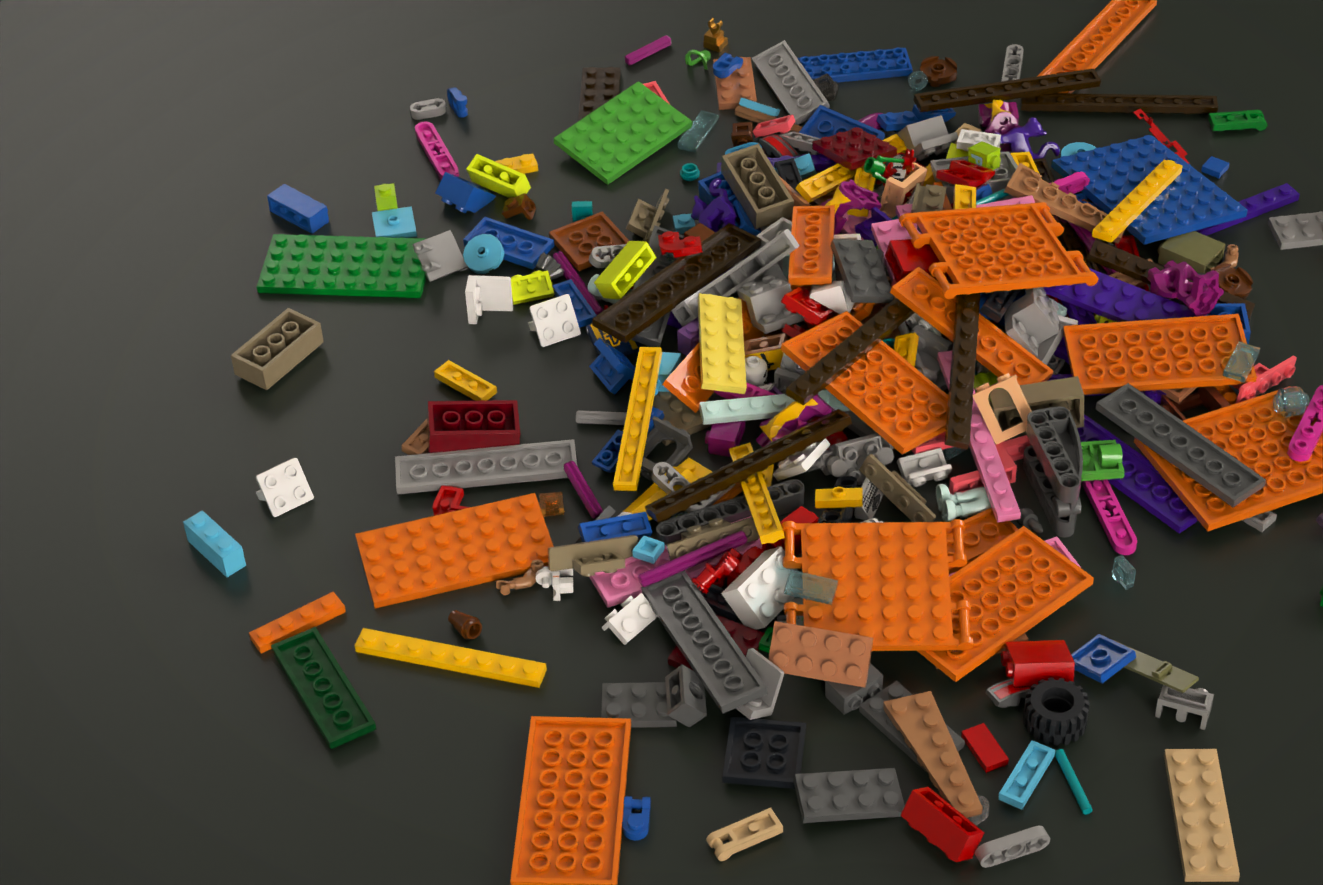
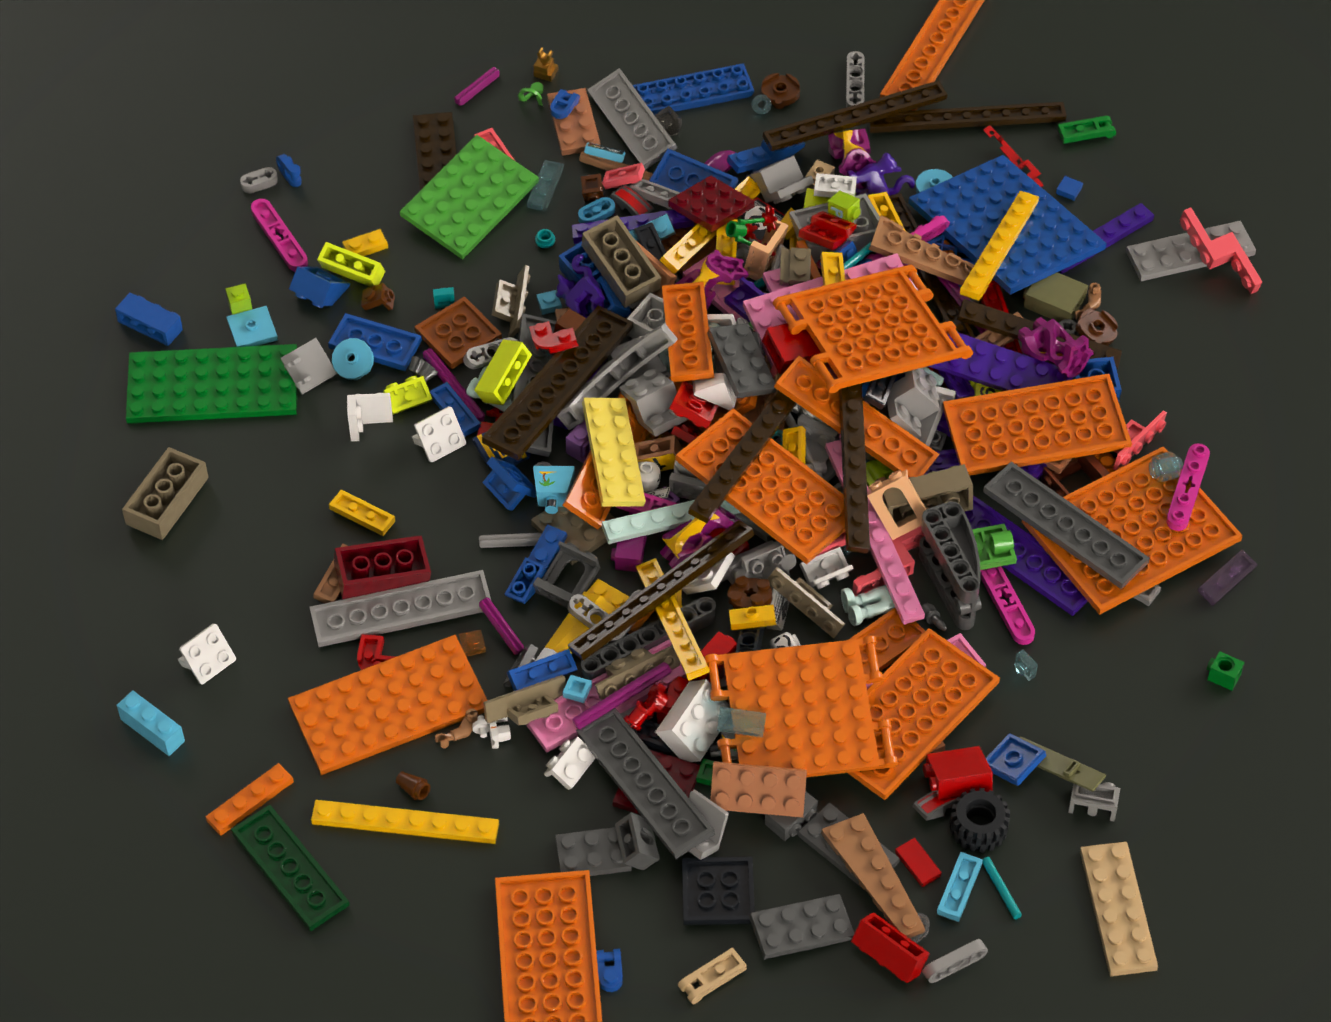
camera: 10 degrees left, 10 degrees up
(637, 419) = (544, 546): yellow plate -> none
(840, 476) = (758, 589): none -> reddish brown plate
(1241, 362) = (1116, 429): clear light blue tile -> none

